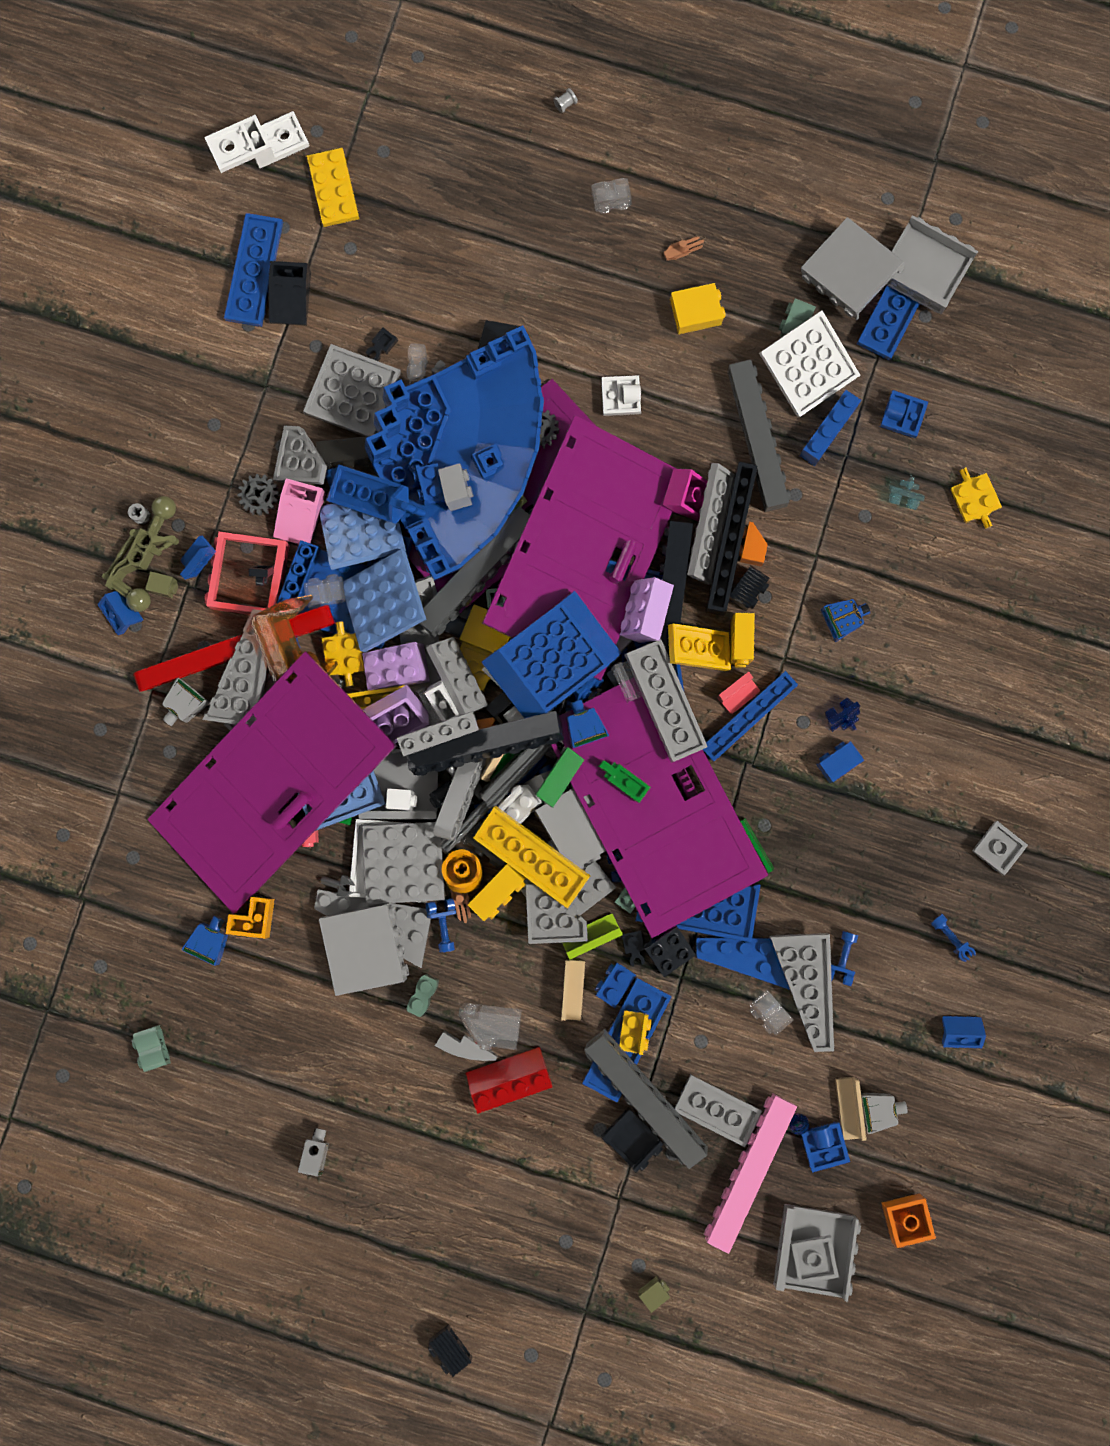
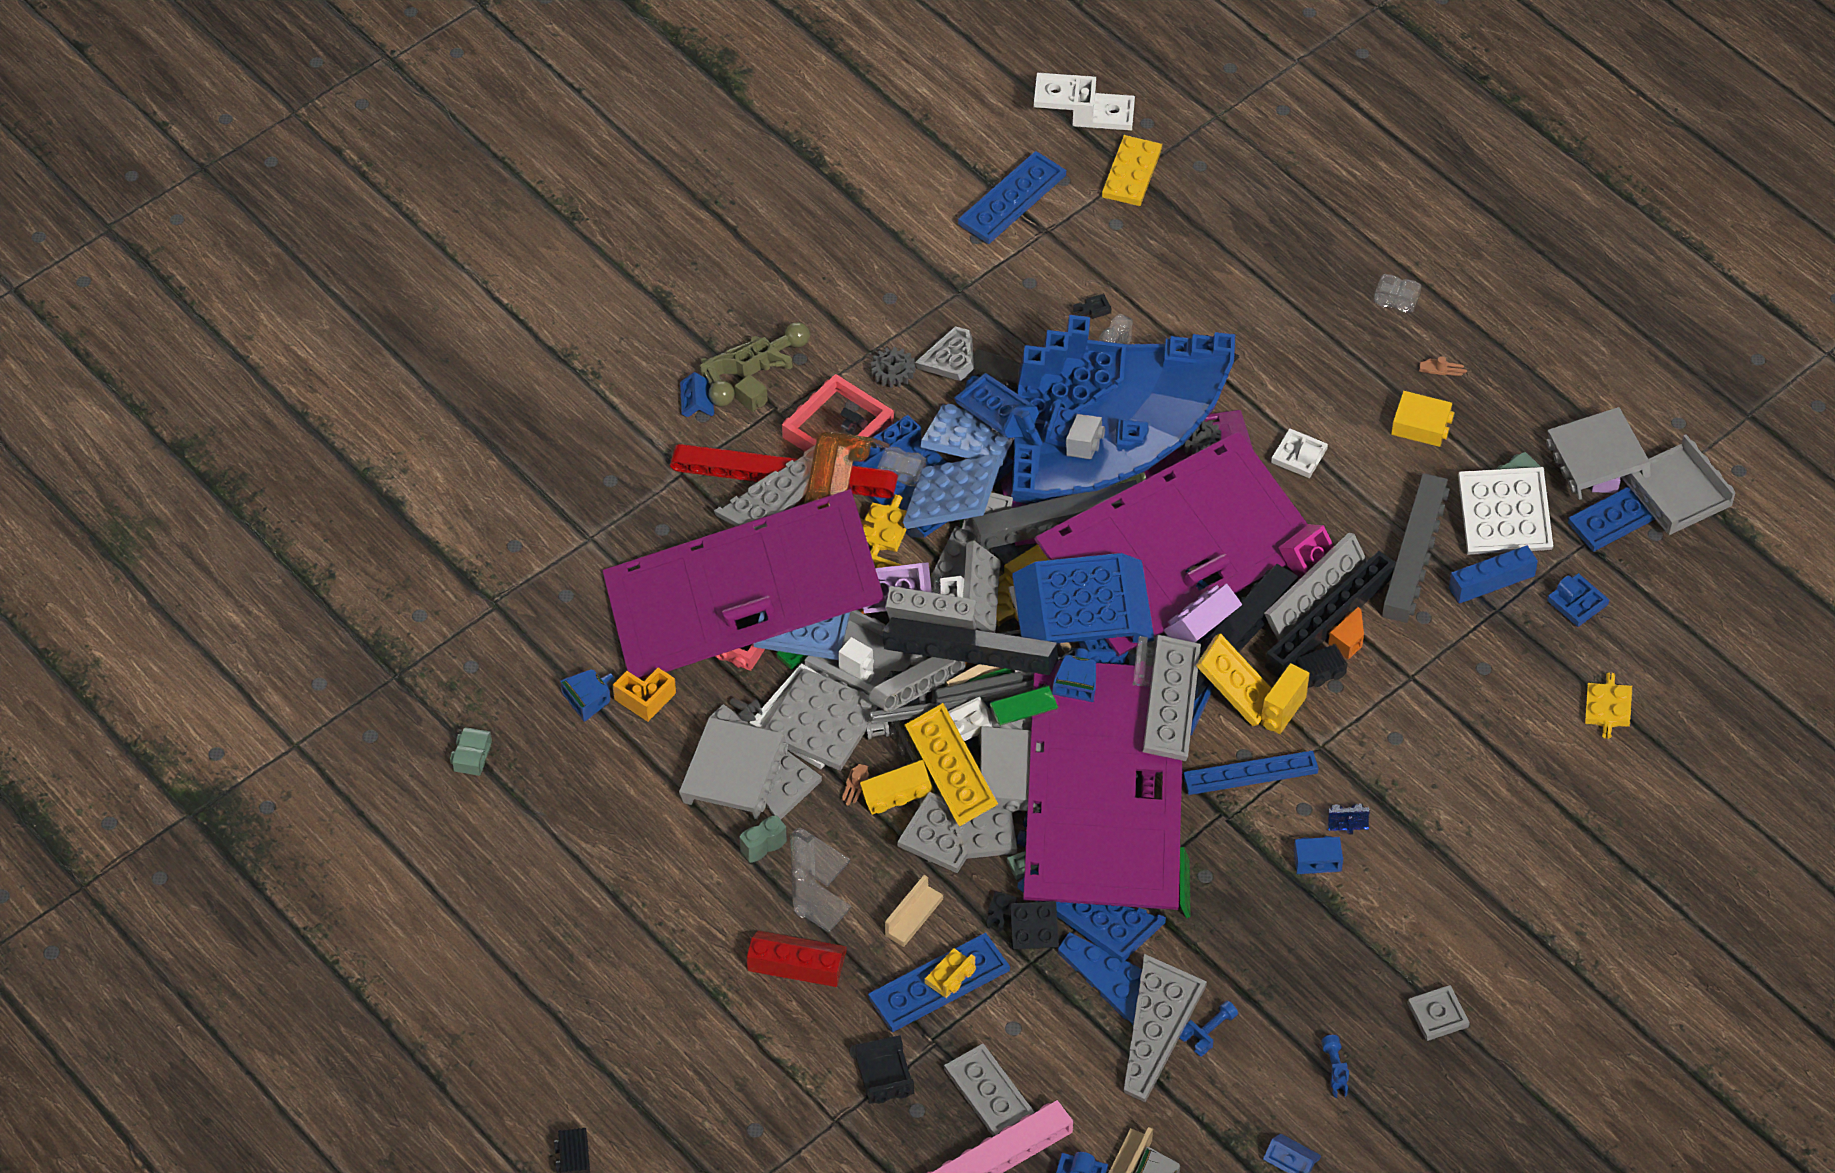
camera: 30 degrees right, 30 degrees down
(133, 514) = (770, 326): light grey bush -> none
(183, 702) = (704, 493): light grey torso -> none
(196, 557) = (799, 387): blue panel -> none
(289, 292) = (1033, 226): black slope -> none
(298, 512) = (923, 394): bright pink slope -> none
(311, 1163) = (561, 915): light grey torso -> none
(350, 390) = (1028, 321): light grey plate -> none
(396, 666) = (941, 551): lavender brick -> none
(449, 904) = (814, 811): blue bar -> none
(452, 868) = (874, 752): light orange brick -> none
(464, 1048) = (772, 905): light grey slope -> none
(565, 100) = (1402, 202): light grey bush -> none
(598, 933) = (965, 881): lime panel -> none
(615, 984) = (958, 928): blue bracket -> none
(624, 780) = (1086, 743): green hinge -> none
(646, 1099) = (923, 1033): dark grey brick -> none
(739, 693) = (1252, 745): coral panel -> none
(771, 1012) = (1101, 1032): clear brick -> none
(799, 1124) = (1064, 1145): clear blue tile -> none
(844, 617) = (1404, 737): blue torso -> none
(914, 498) = (1542, 671): clear light blue hips -> none

